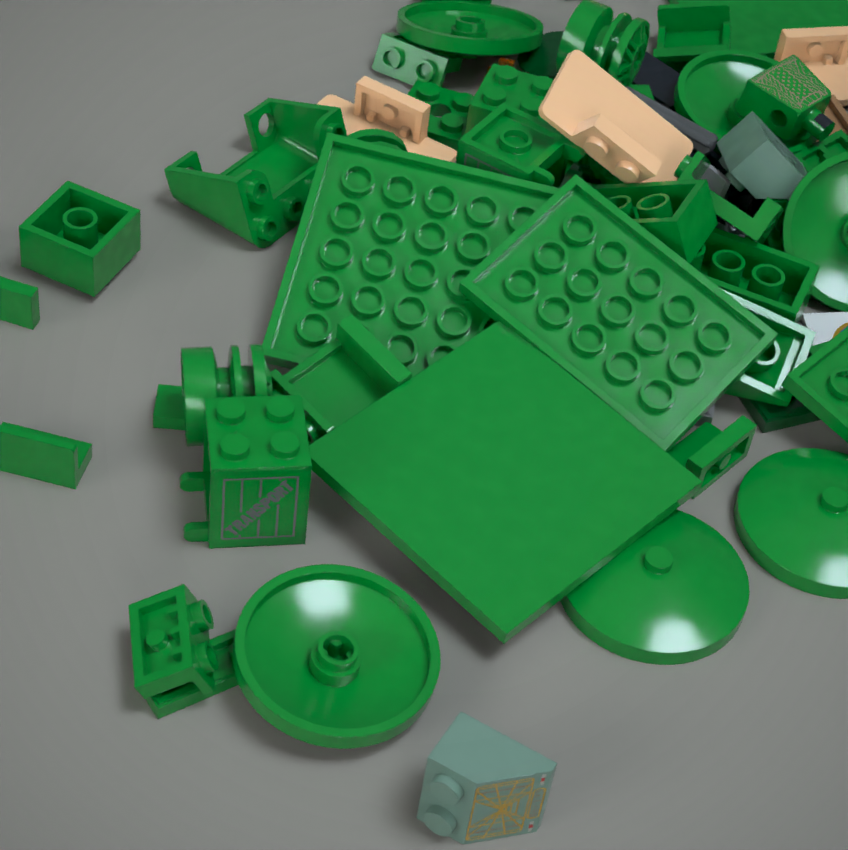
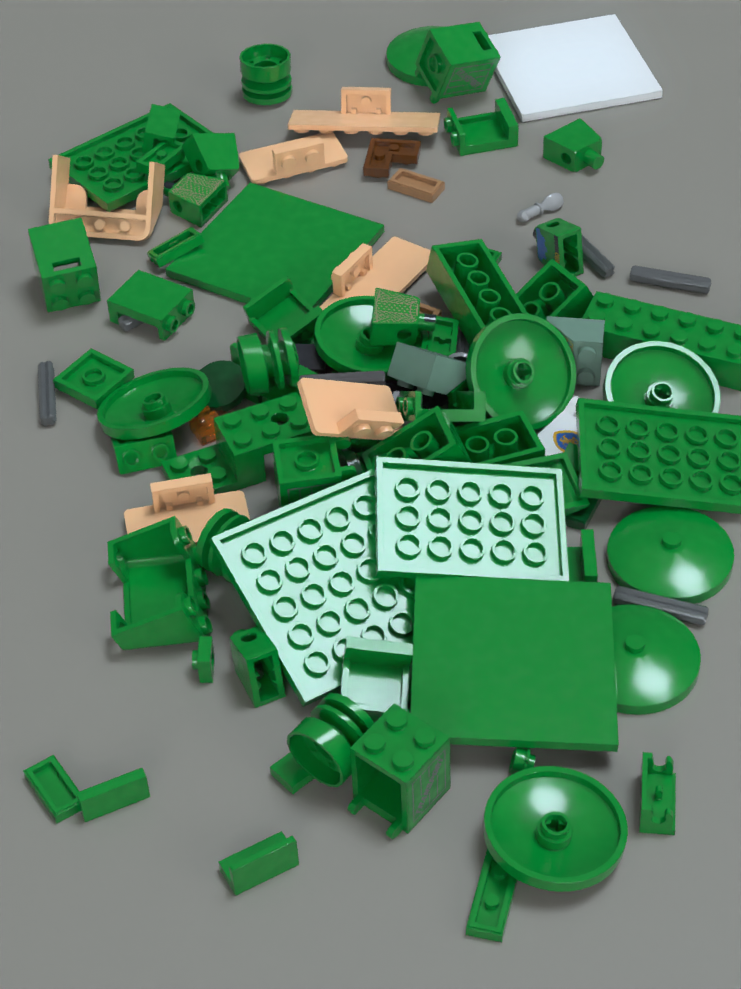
camera: 35 degrees left, 0 degrees up
(80, 238) = (118, 718): green brick -> none
(172, 642) = (473, 896): green bracket -> none
(227, 255) = (204, 659): none -> green plate
(254, 279) = (253, 651): none -> green torso
(400, 571) = (521, 760): none -> green plate
(483, 784) = (698, 828): sand green slope -> none
(503, 705) = (657, 796): none -> green hinge
(758, 566) = (679, 609): none -> dark grey axle

